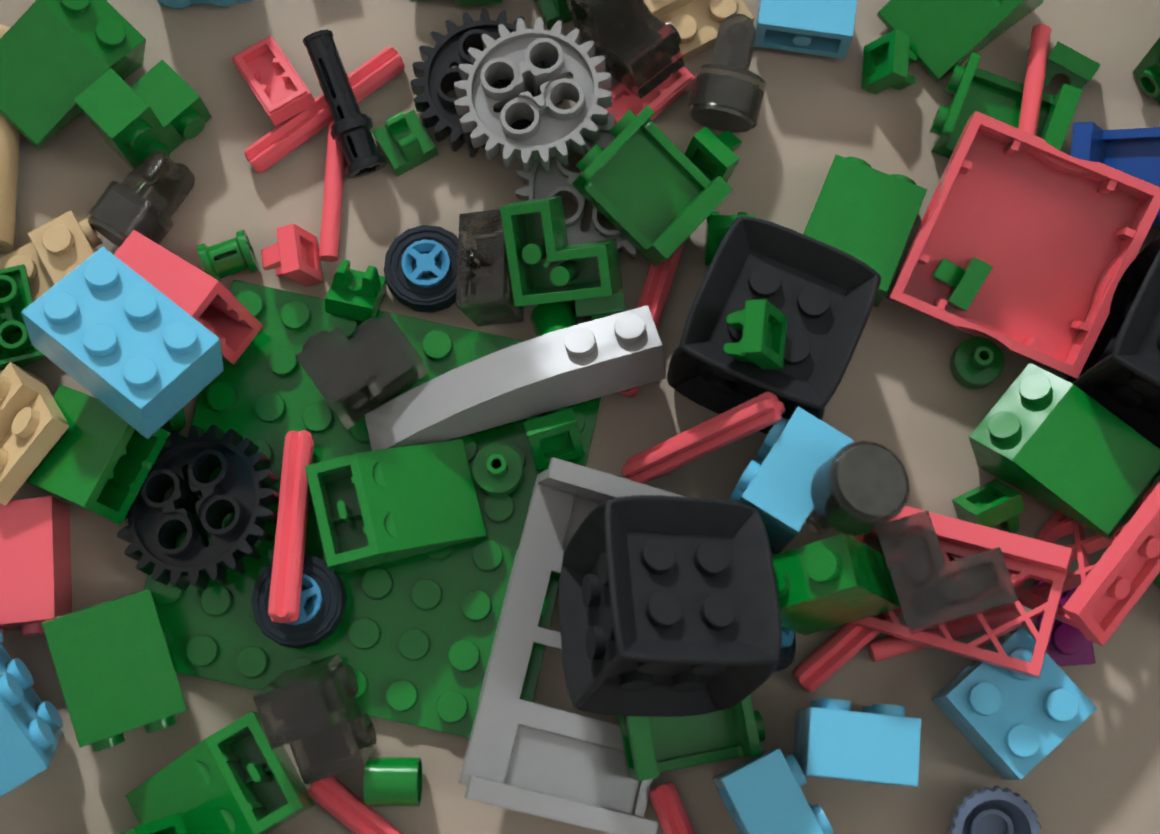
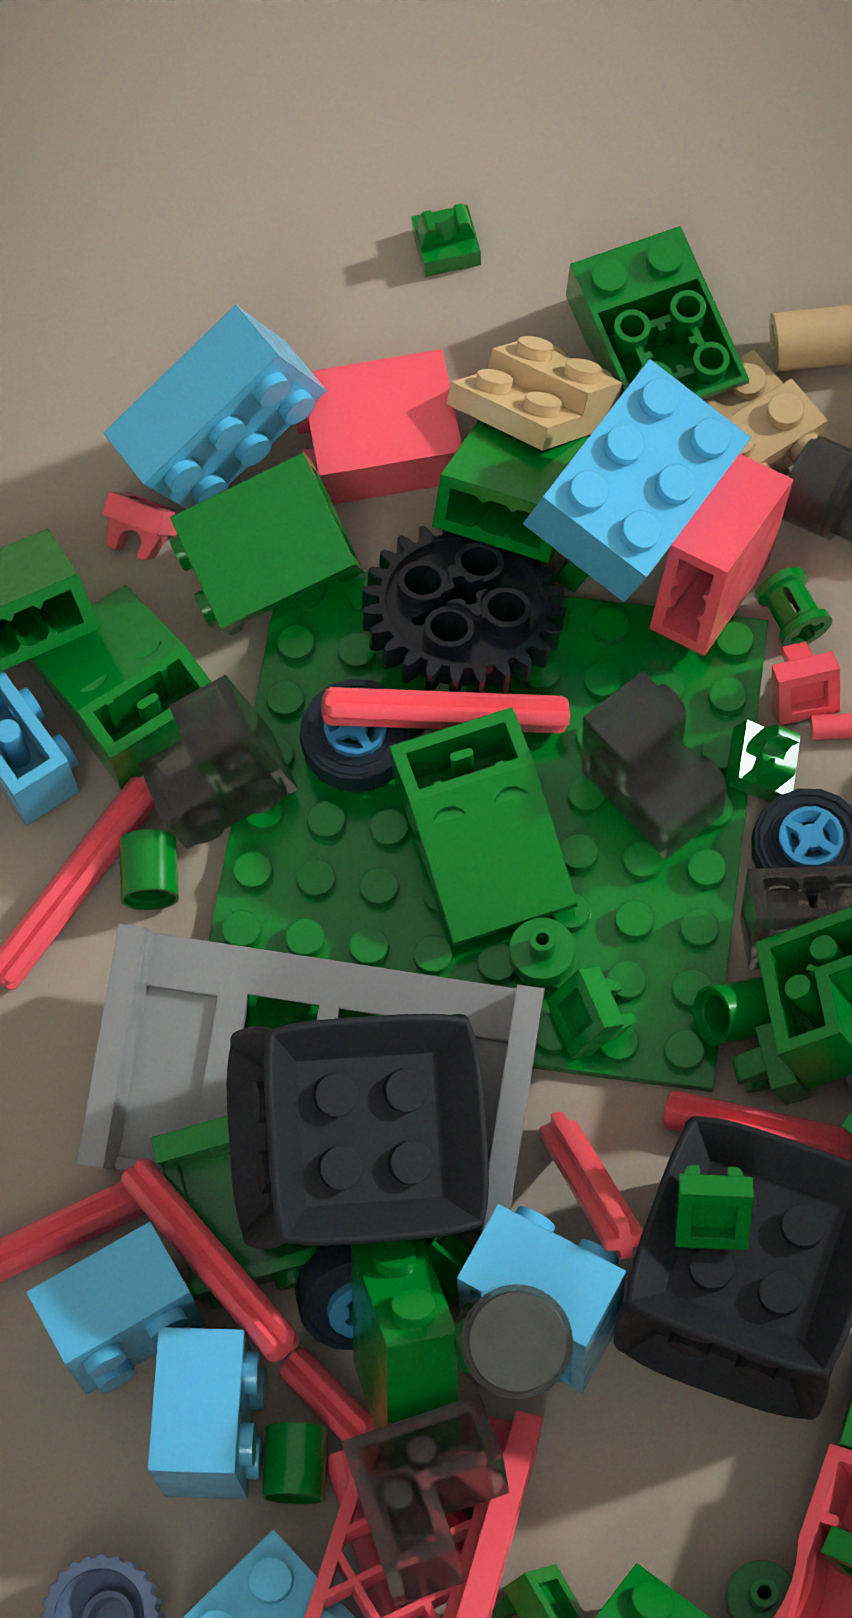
camera: 90 degrees right, 10 degrees down
(62, 776) = (138, 514): none -> coral tile
(525, 381) = (656, 966): light grey slope -> none
(739, 737) = (210, 1260): none -> coral axle
(881, 681) = (295, 1463): none -> green beam

